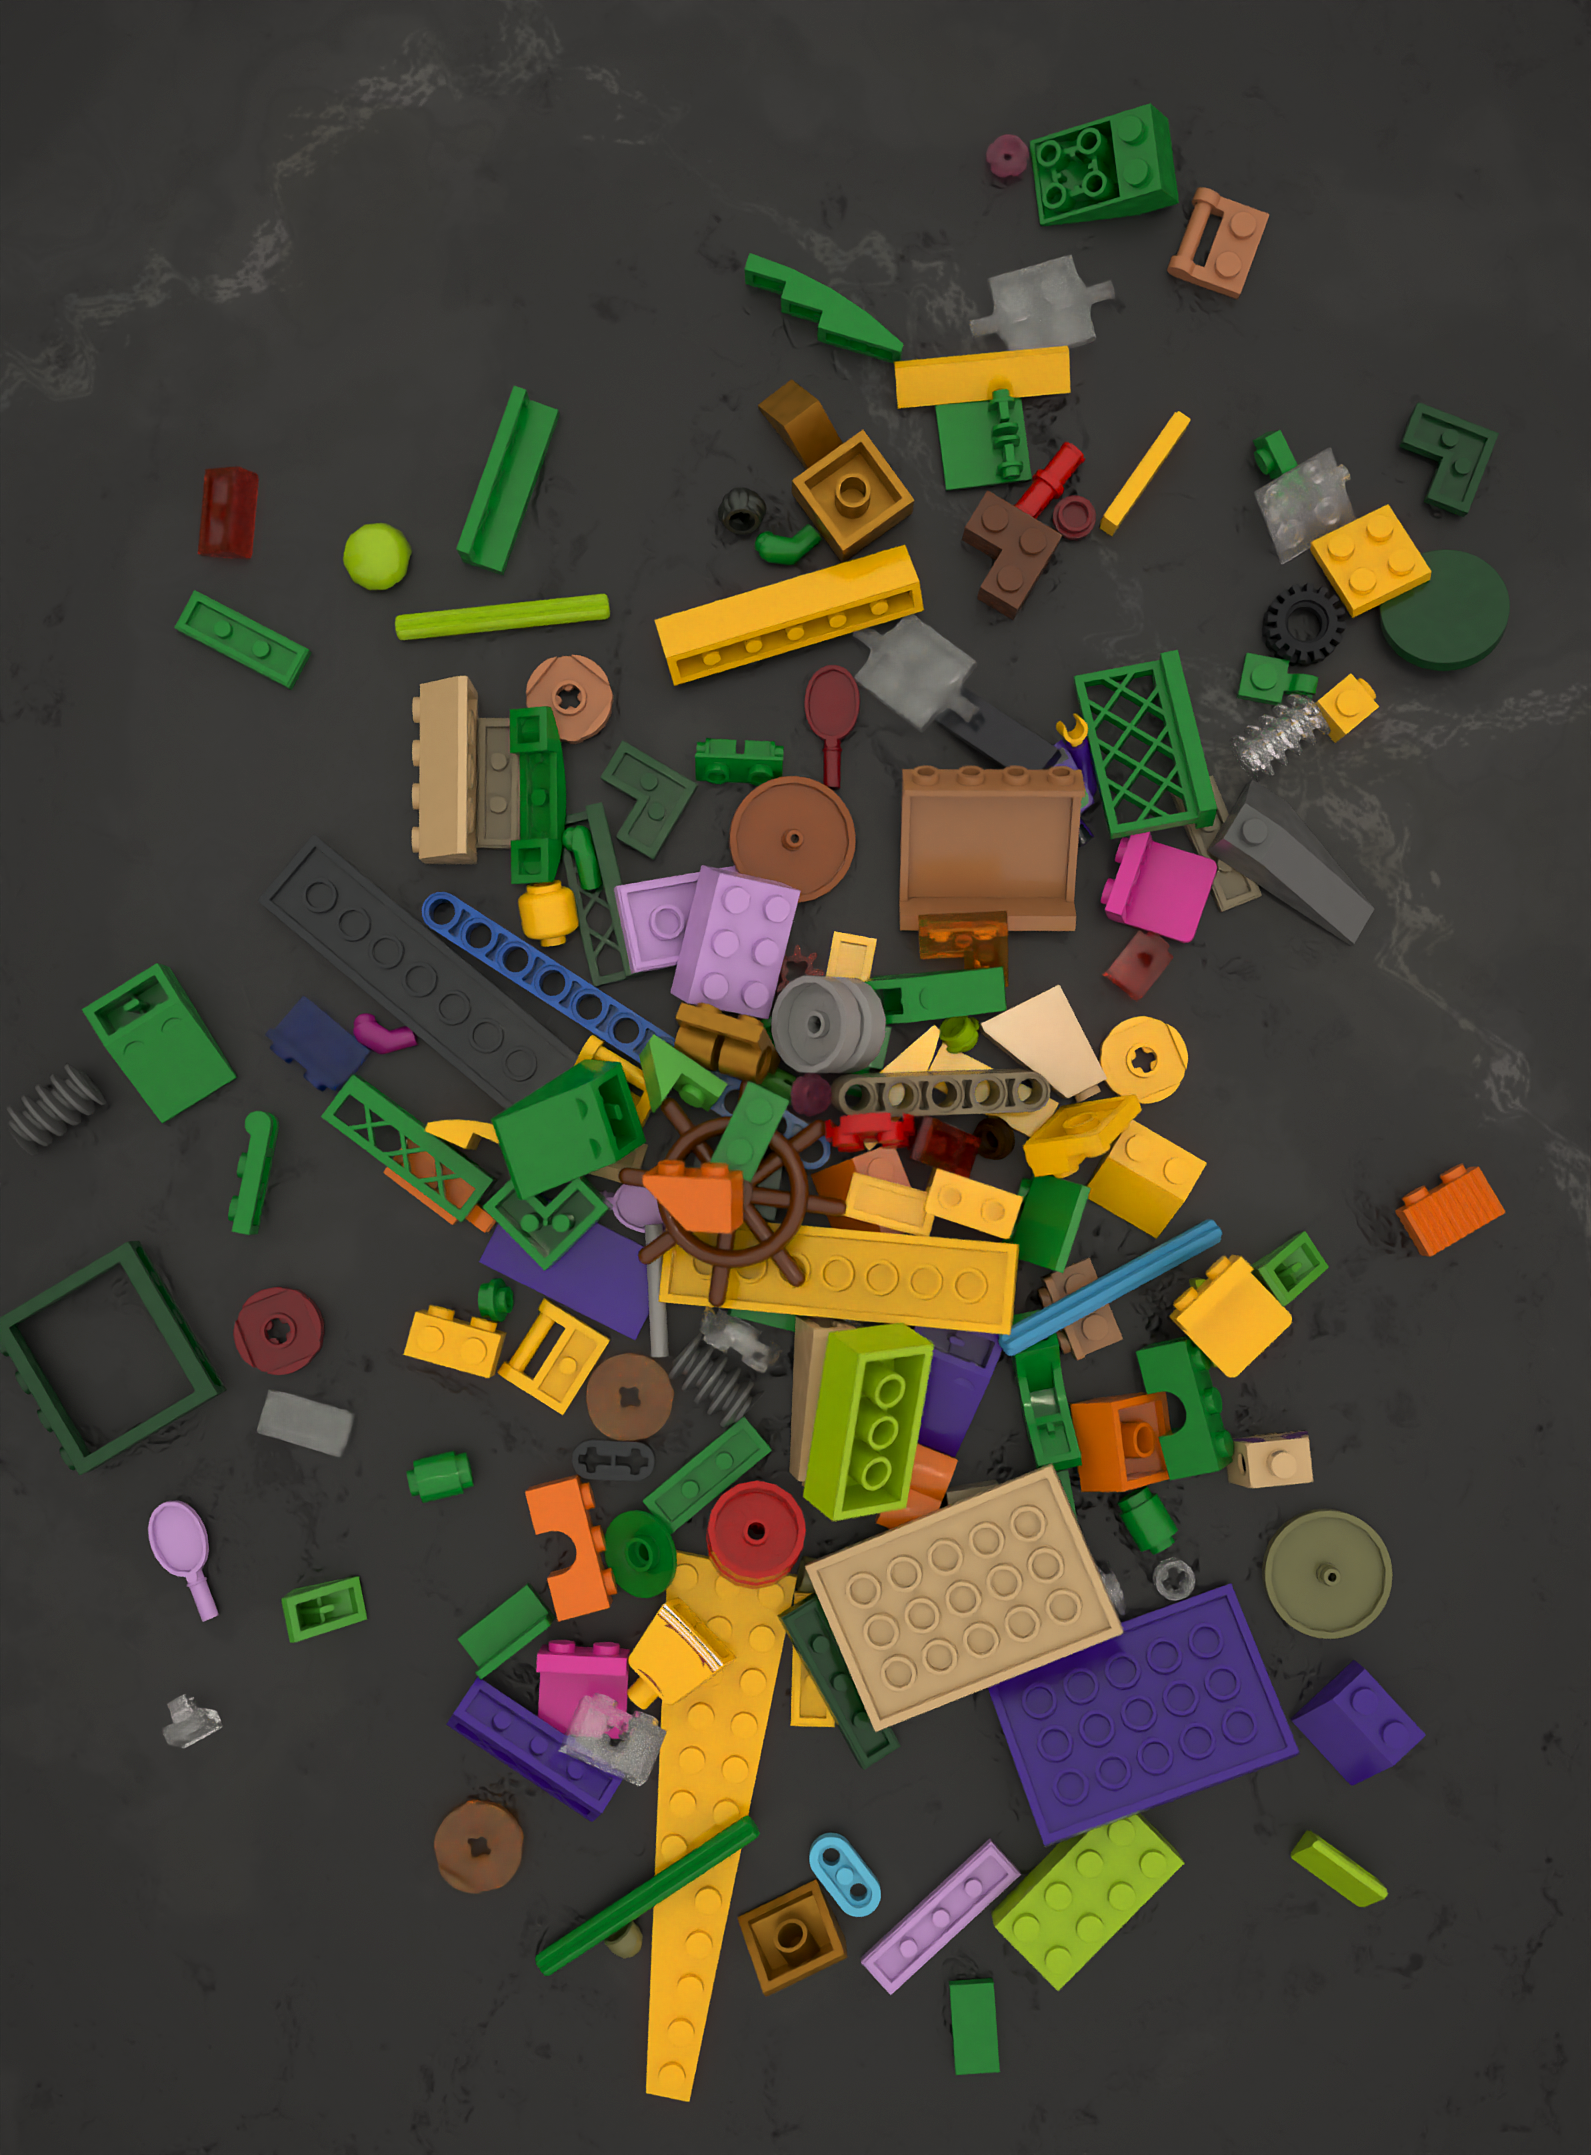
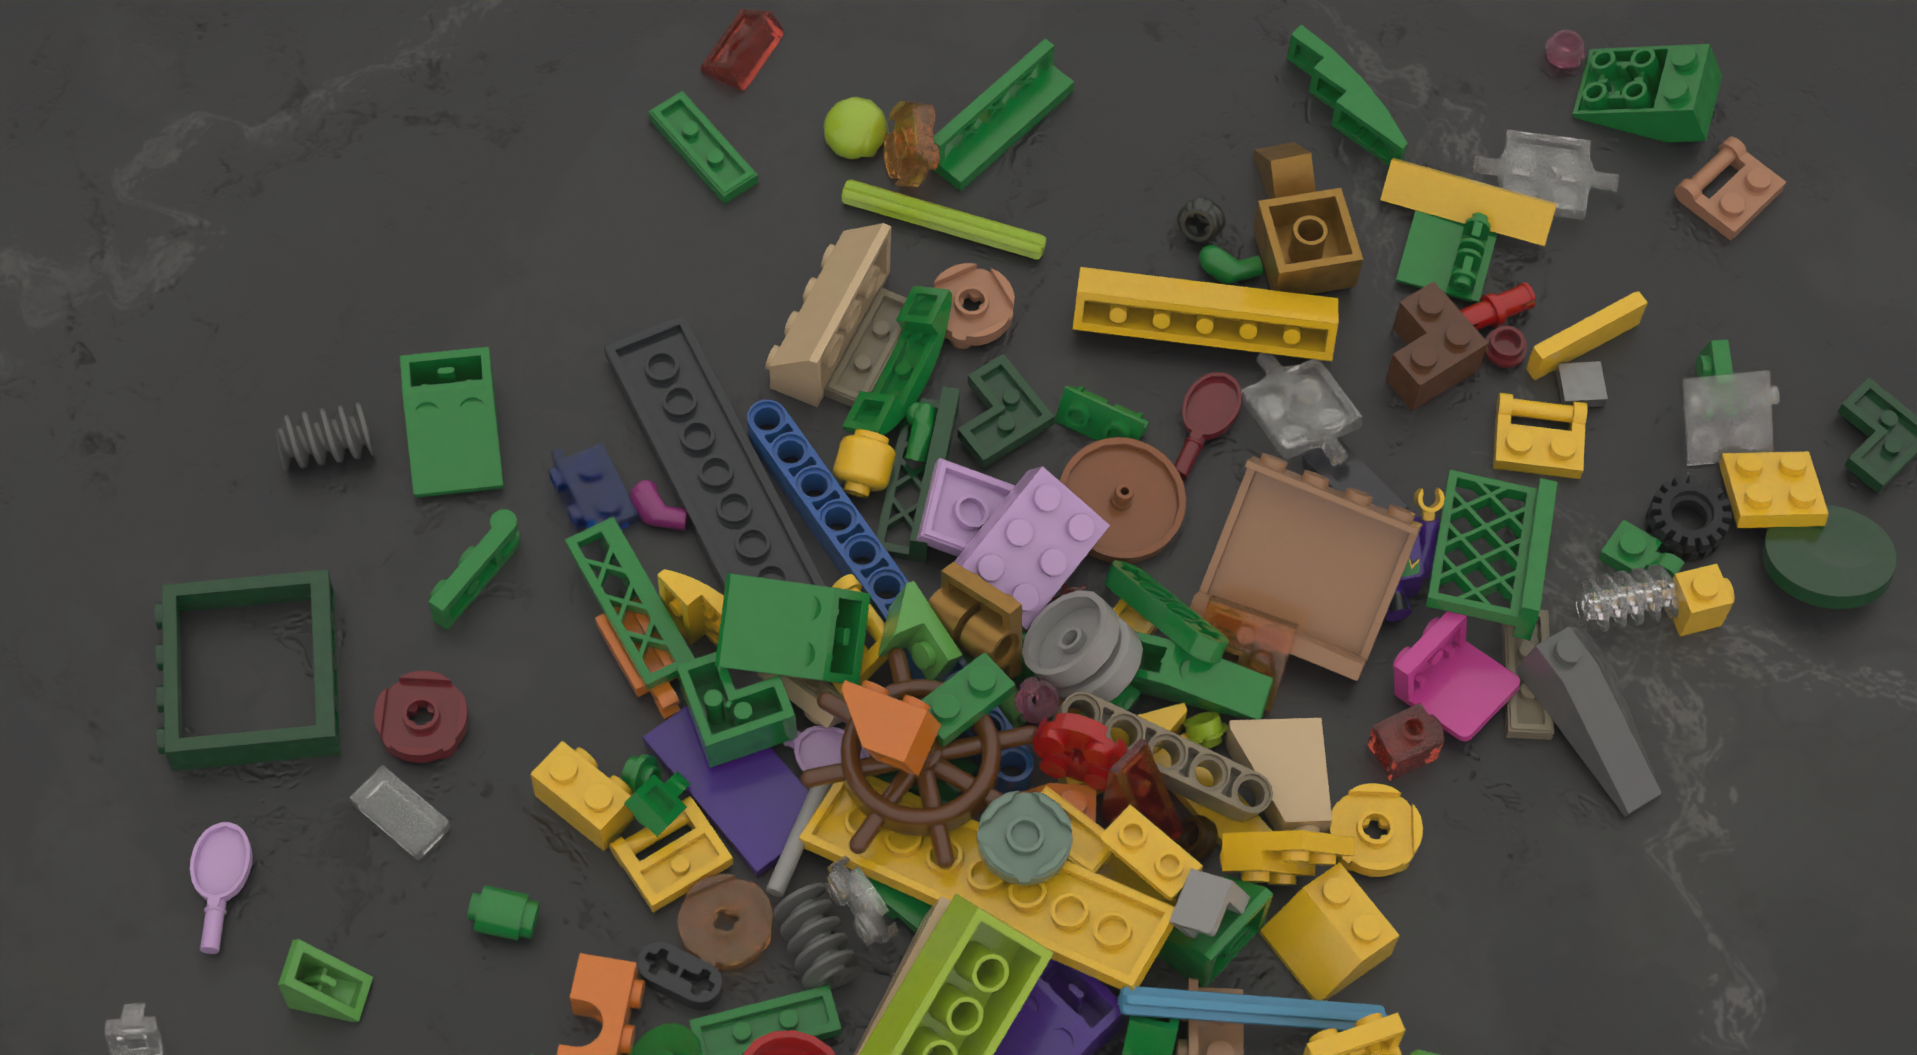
camera: 20 degrees right, 25 degrees down
(438, 559) = (911, 148): none -> clear orange plate
(523, 1329) = (658, 803): none -> green plate
(858, 1234) = (1024, 837): none -> sand green tile
(921, 968) = (1166, 612): none -> green beam
(1039, 1230) = (1205, 902): none -> light grey panel
(1142, 610) = (1539, 448): none -> yellow plate
(1157, 525) = (1581, 383): none -> flat silver tile

